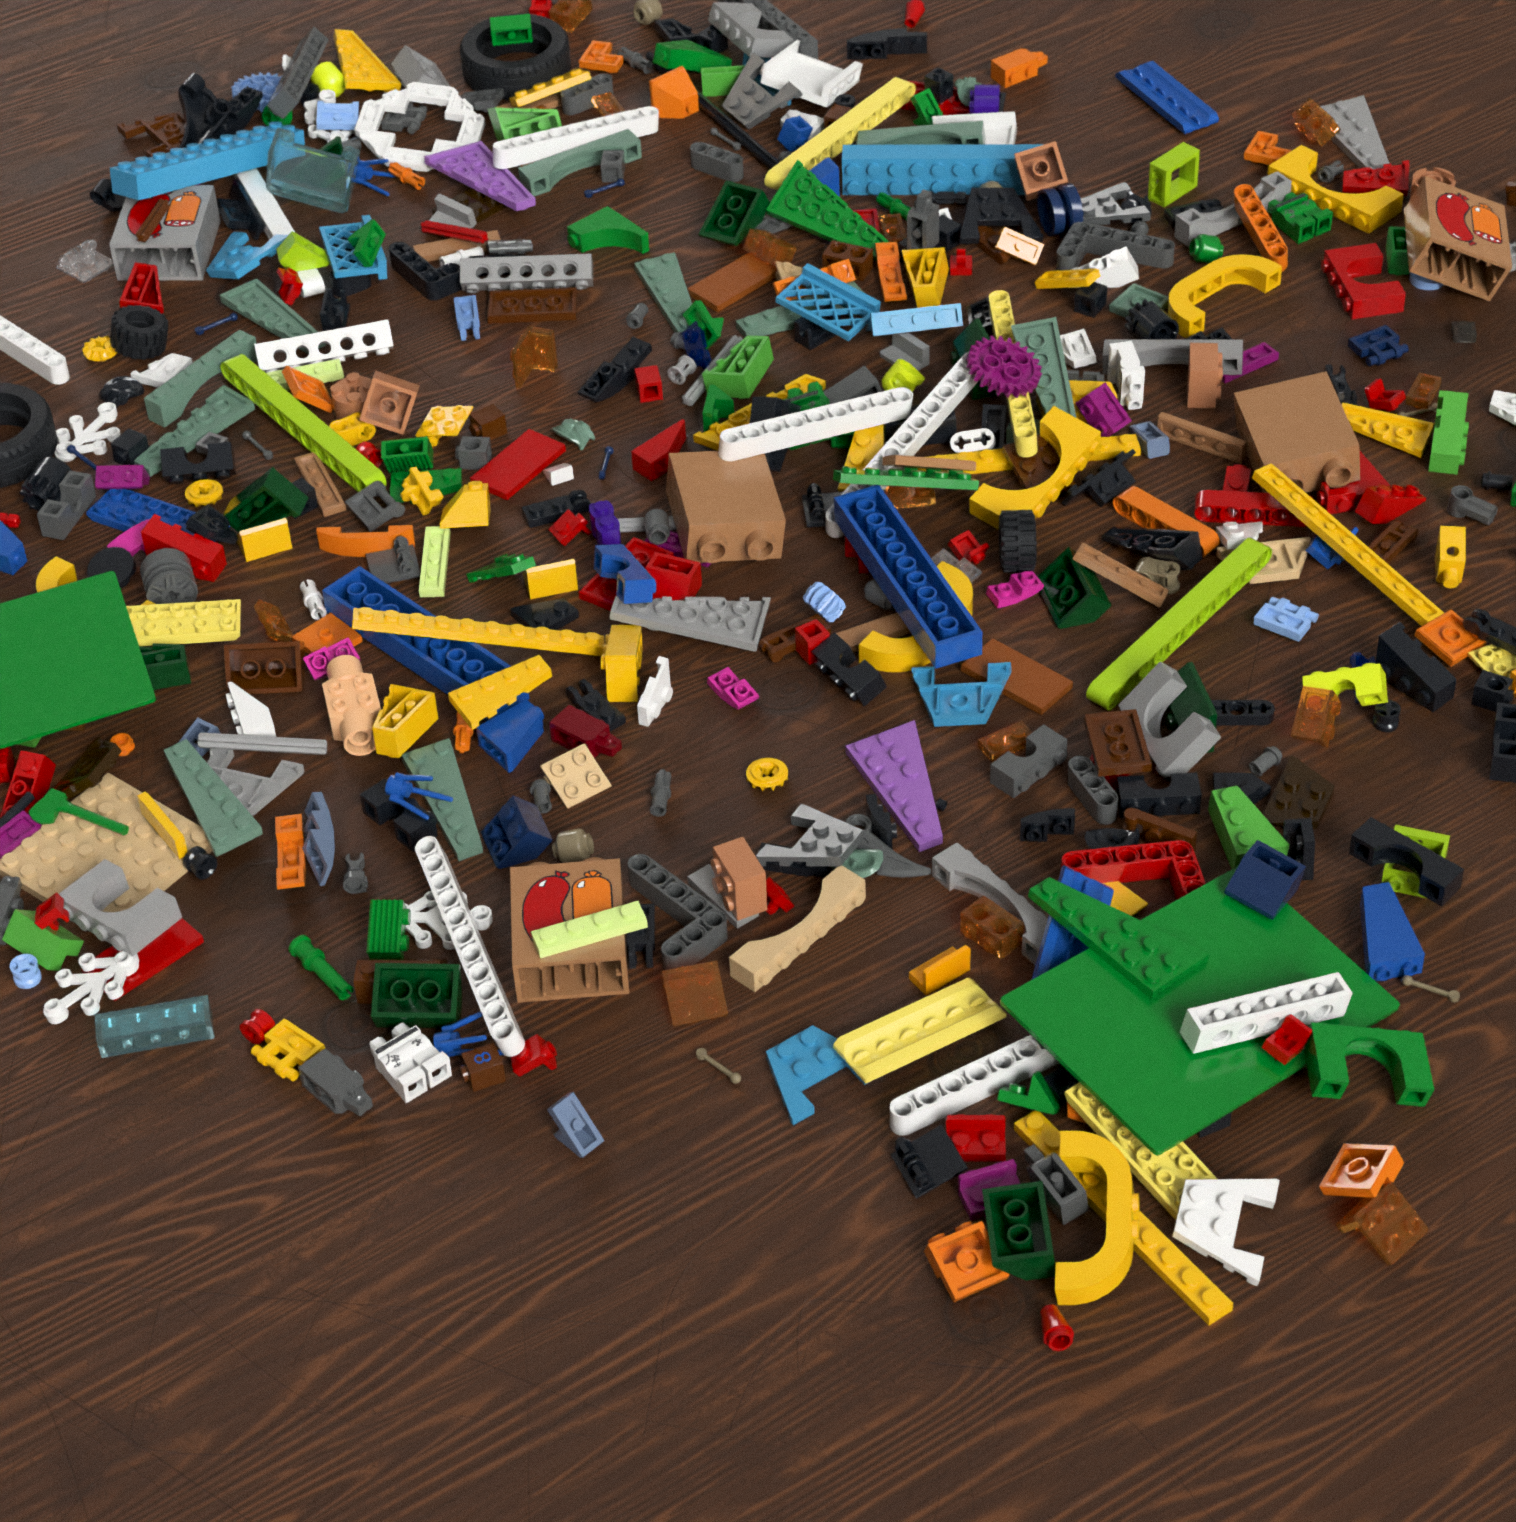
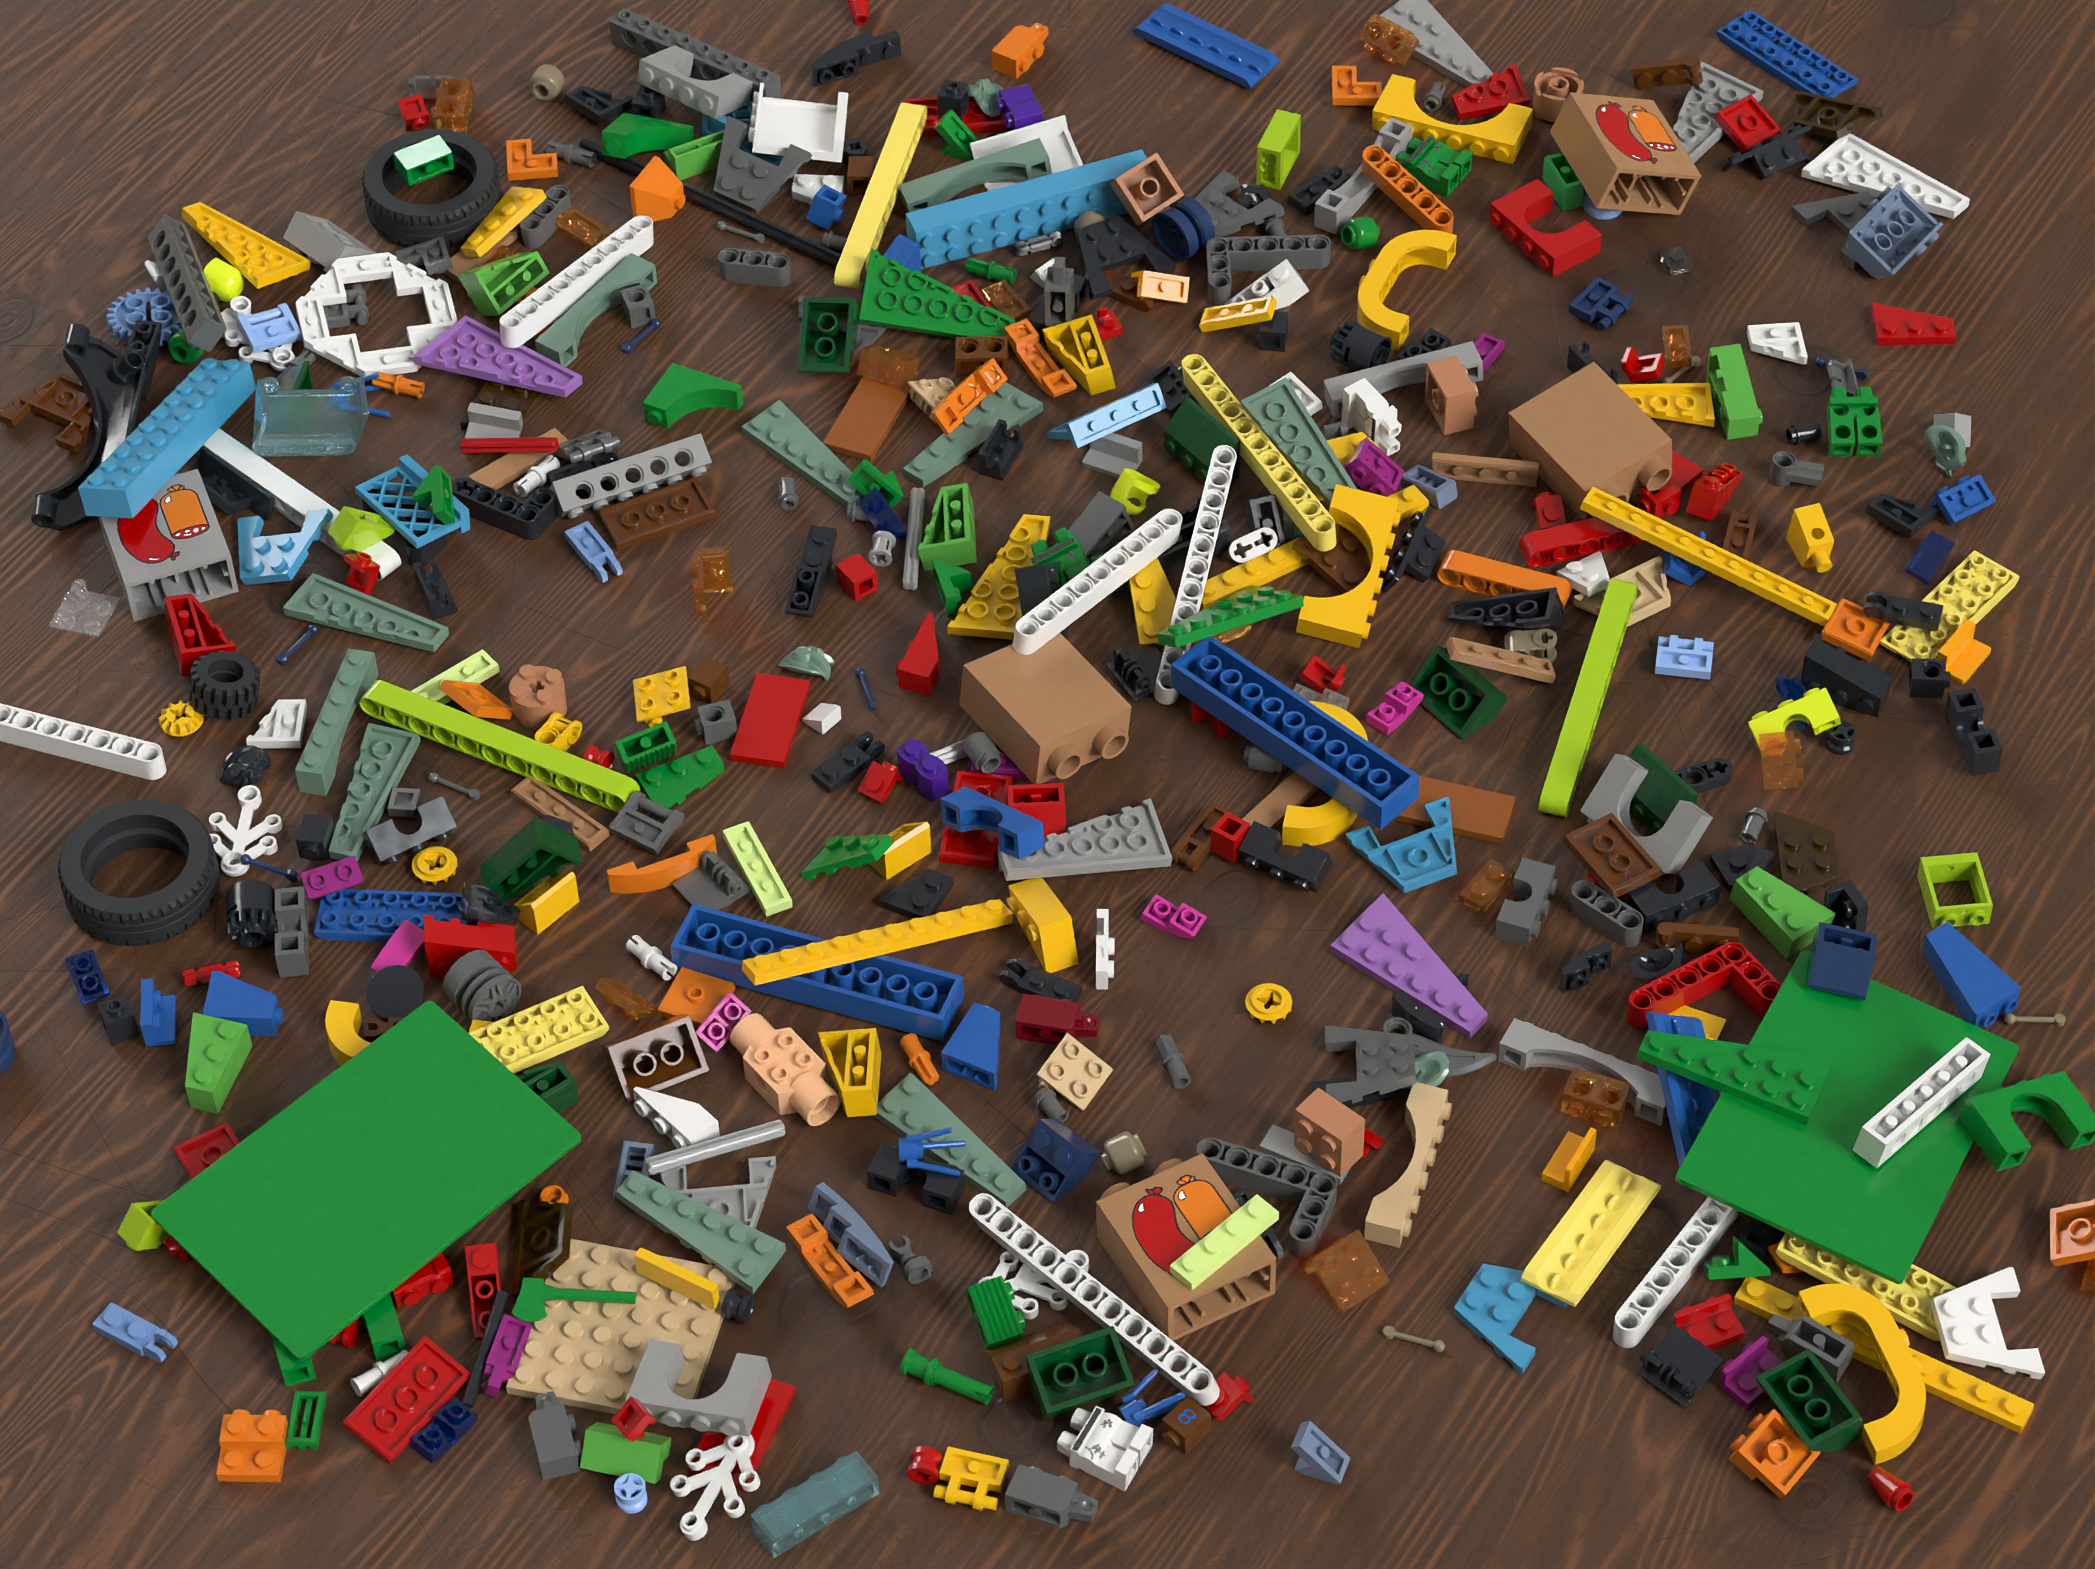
camera: 25 degrees left, 5 degrees up
(152, 220) = (160, 538): reddish brown axle -> none
(379, 330) = (513, 601): white brick -> none
(389, 402) = (592, 691): nougat brick -> none
(418, 492) = (690, 789): yellow hips -> none
(468, 507) = (756, 793): yellow slope -> none
(490, 693) = (942, 1009): yellow wing -> none
(824, 601) = (1214, 786): light blue gear -> none
(835, 293) = (1008, 406): dark azure fence -> none
(926, 462) = (1234, 589): medium nougat tile -> none
(1003, 366) = (1262, 453): magenta gear -> none
(1017, 540) = (1376, 653): black tyre -> none
(1135, 294) = (1322, 318): sand green tile -> none
(1287, 1040) = (1953, 1122): red bracket -> none
(1379, 844) = (1926, 884): black arch -> none

